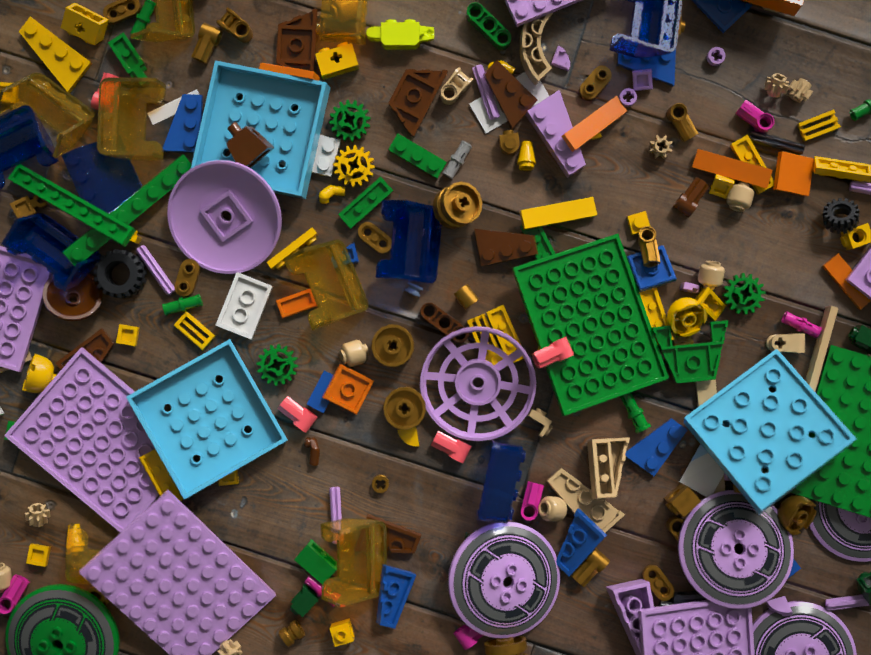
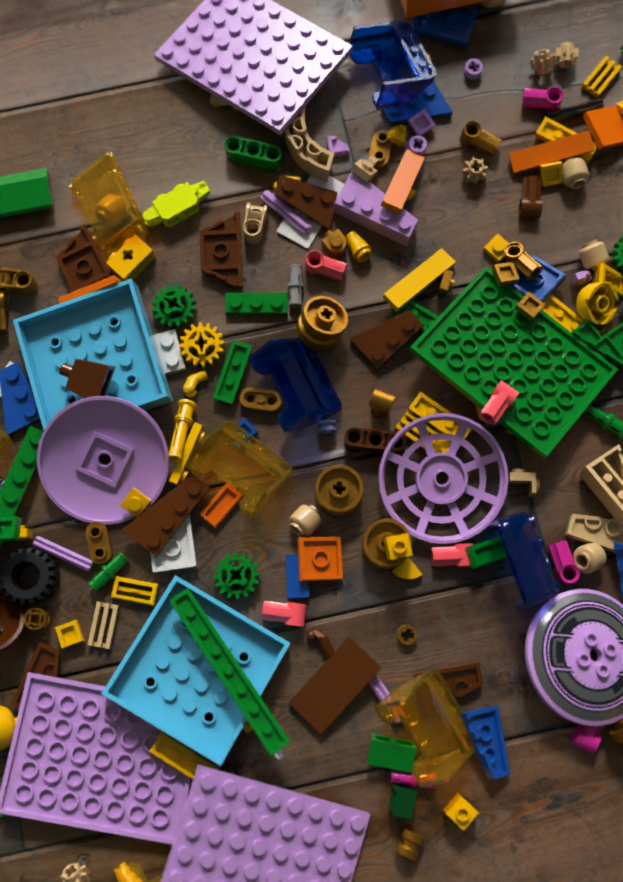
camera: 30 degrees left, 10 degrees down
(114, 309) = (41, 620): none -> pearl gold wheel
(146, 354) = (91, 642): none -> tan tile
(229, 434) = (229, 672): none -> green plate
(231, 263) = (135, 502): none -> yellow plate
(245, 289) = (163, 519): none -> reddish brown wing
(303, 221) = (182, 421): none -> yellow pin
(304, 489) = (335, 685): none -> reddish brown tile
(408, 417) = (397, 546): none -> yellow brick
(474, 458) = (485, 552): none -> green tile
(491, 159) = (327, 266): none -> coral piece
(569, 96) = (365, 169): none -> tan plate
(578, 229) = (446, 283): none -> pearl gold plate
(616, 78) = (397, 135): none -> yellow tile
(628, 250) = (505, 274): none -> pearl gold plate
(630, 288) = (530, 306): none -> pearl gold plate

